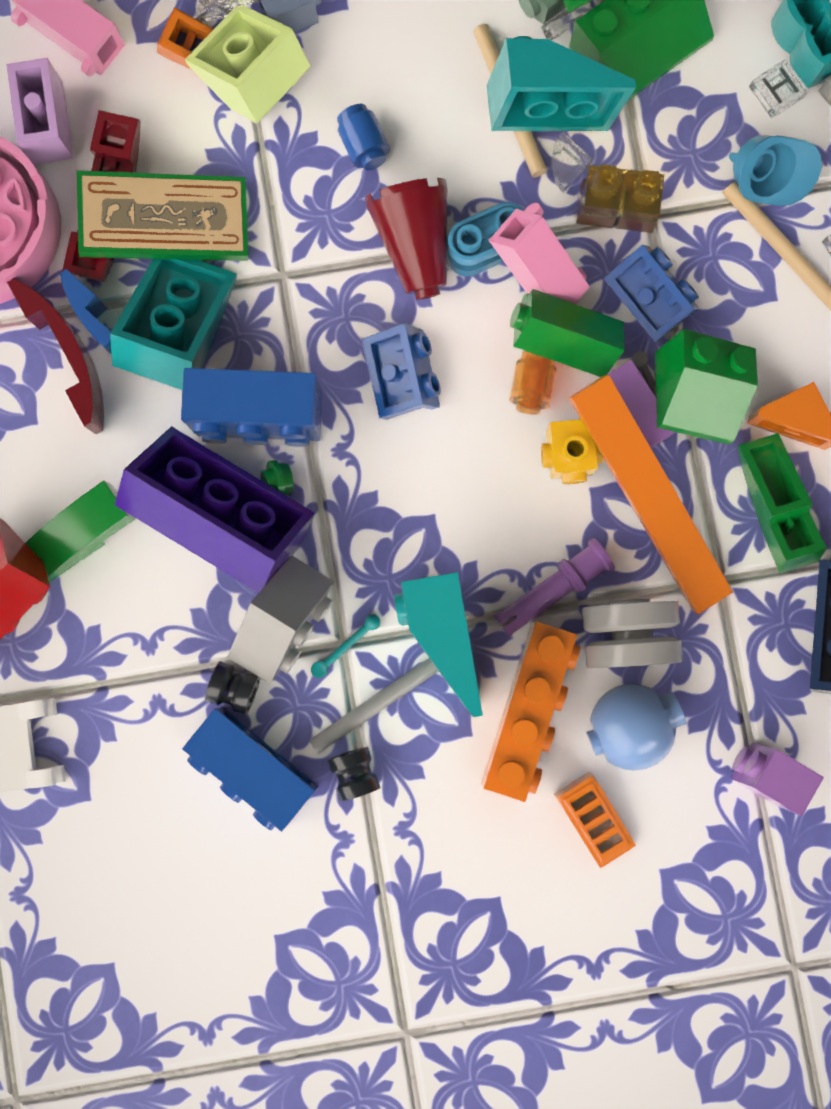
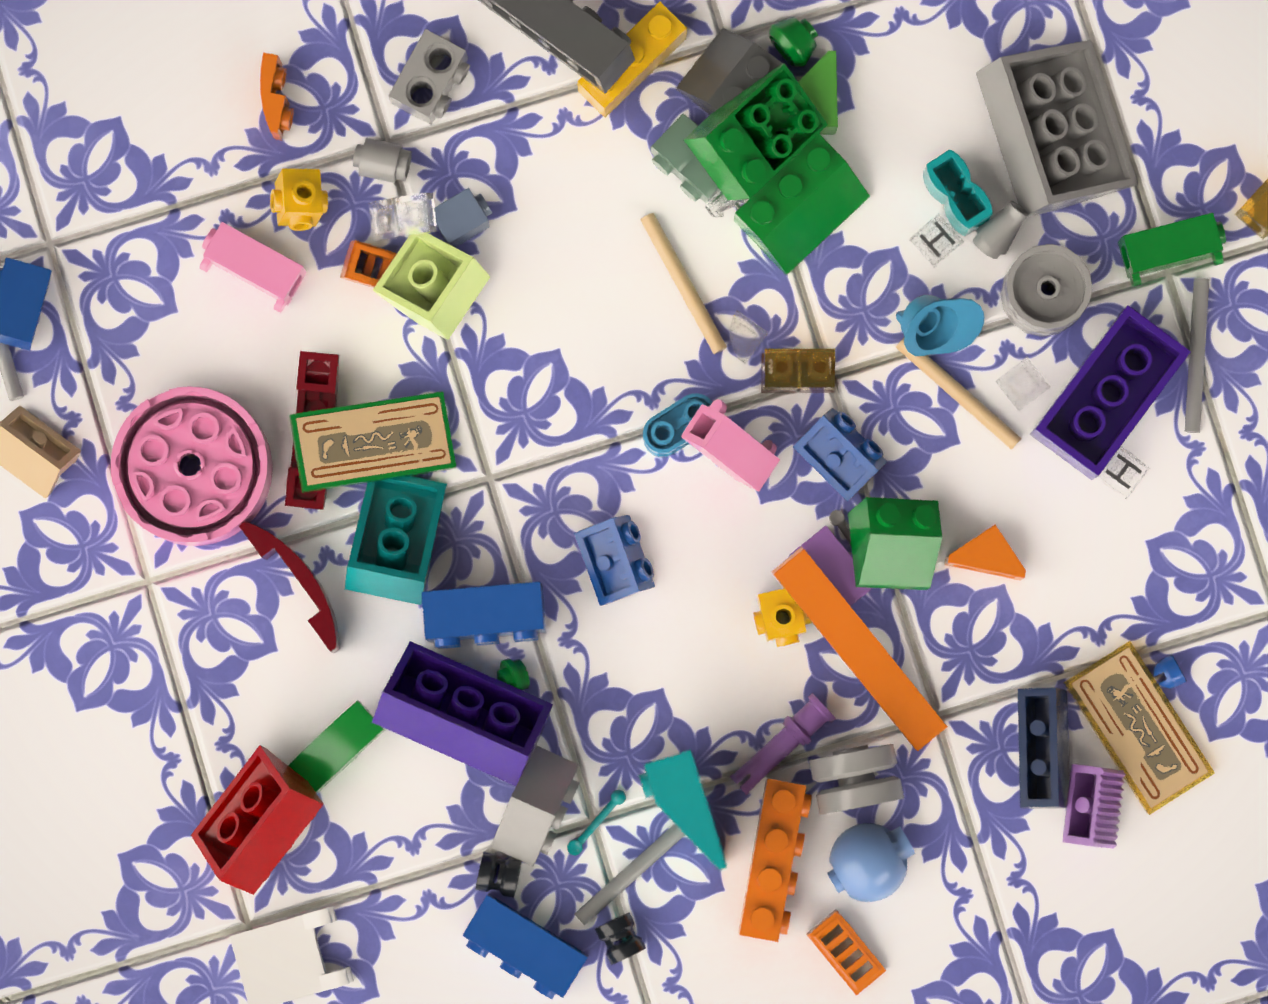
camera: 10 degrees left, 0 degrees up
(39, 111) = (243, 357): lavender brick -> none
(87, 308) = (311, 535): blue slope -> none
(362, 137) = (549, 340): blue brick -> none
(414, 233) = (611, 431): dark red cone -> none
(532, 383) = (739, 554): clear orange brick -> none
(553, 89) = (717, 281): teal slope -> none
(567, 333) = (764, 508): green brick -> none
(776, 777) = (999, 890): medium lavender brick -> none
(780, 503) = (981, 638): green slope -> none

